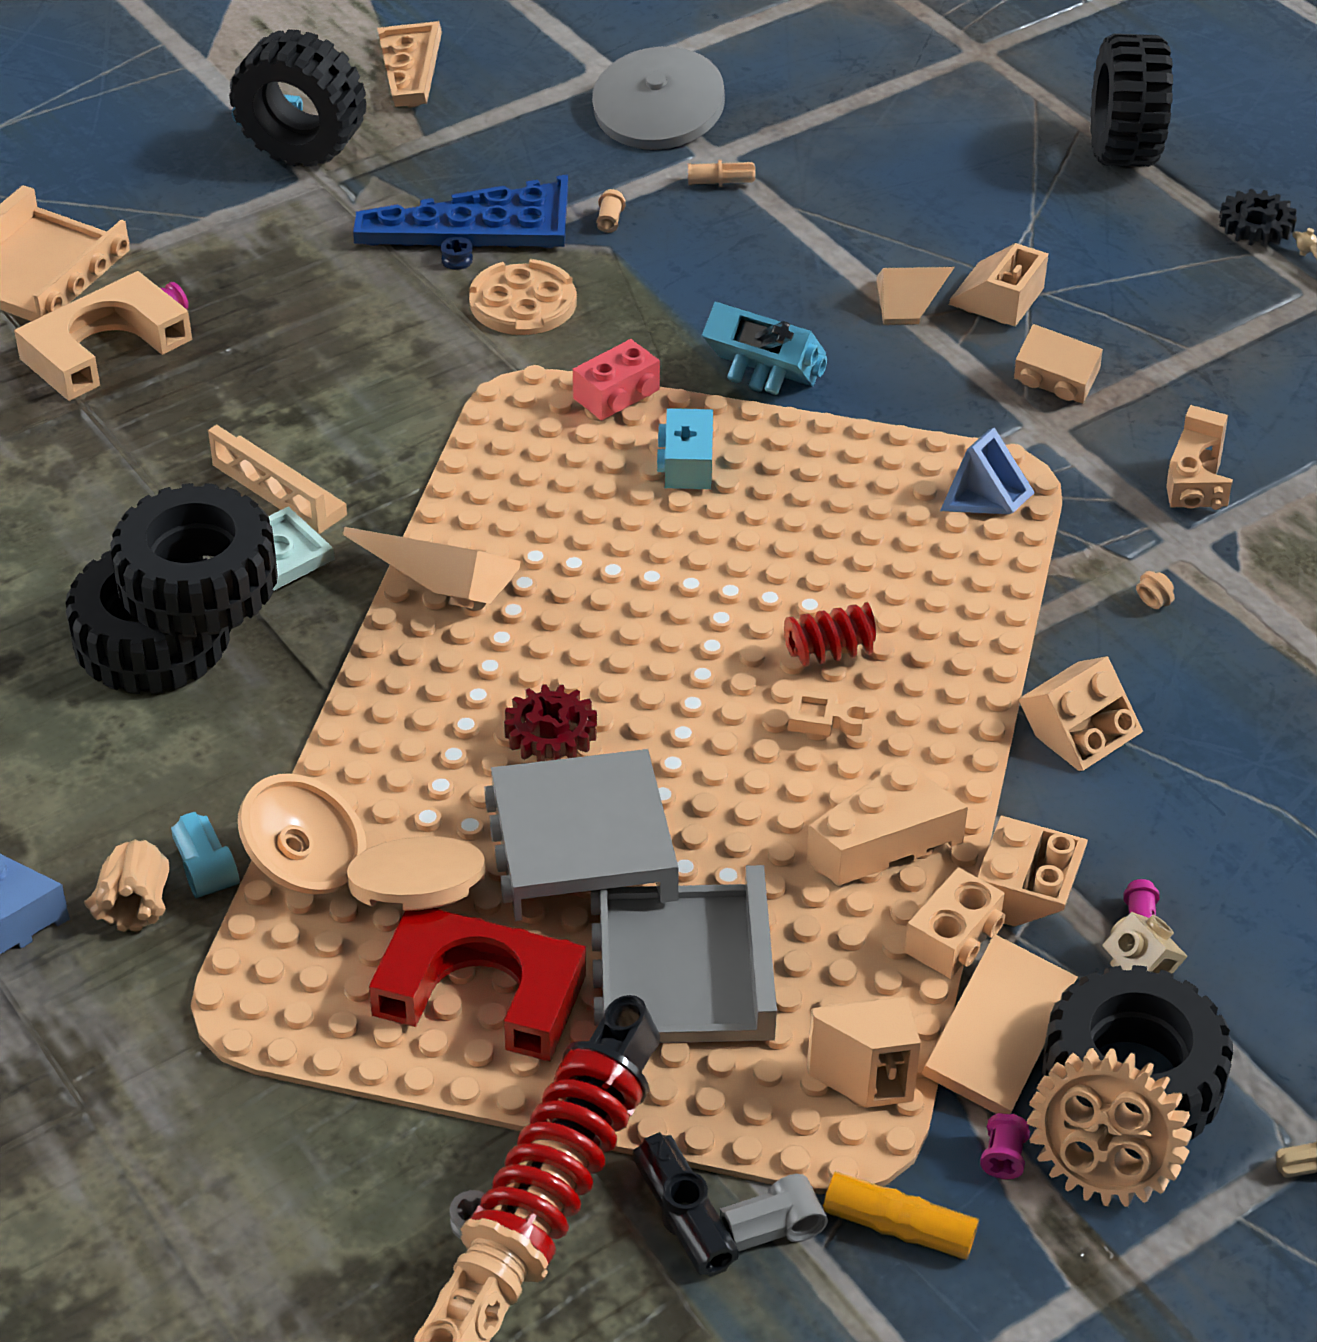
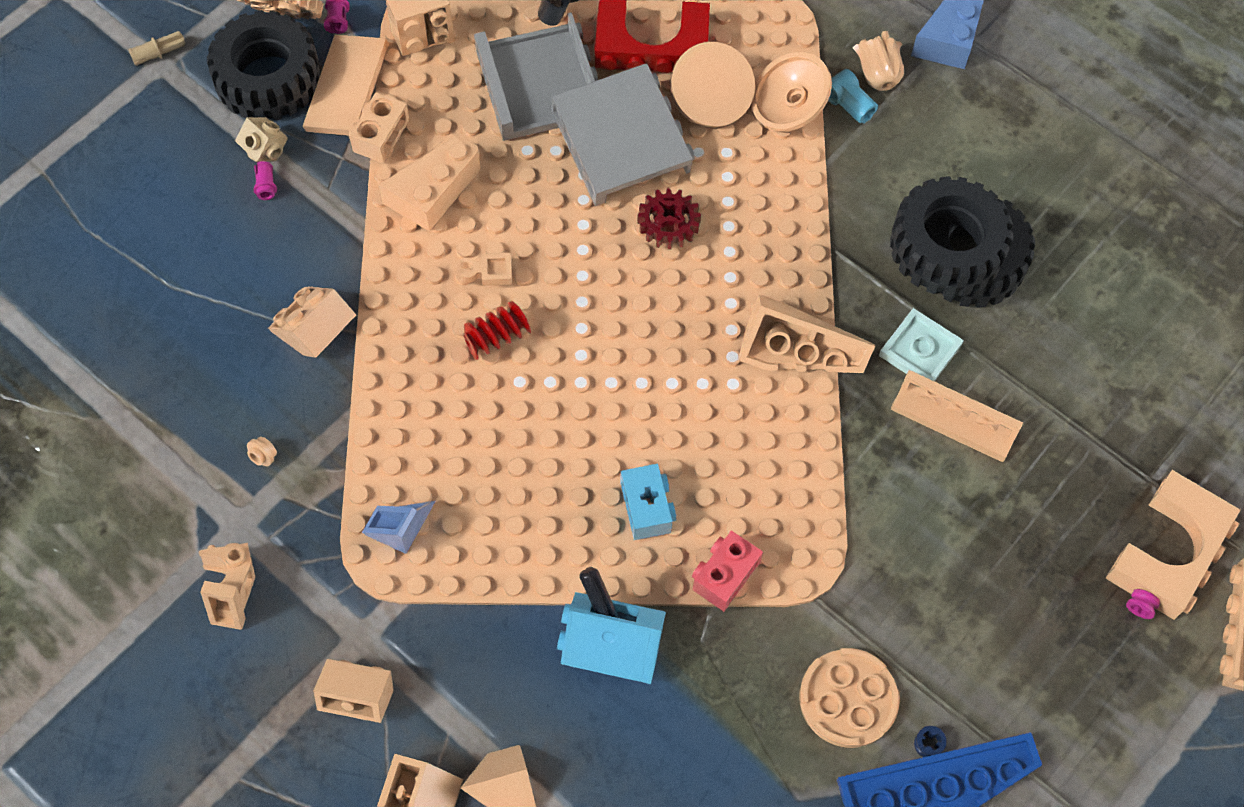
camera: 165 degrees right, 20 degrees up
(1032, 868) = (337, 178): light nougat slope -> none

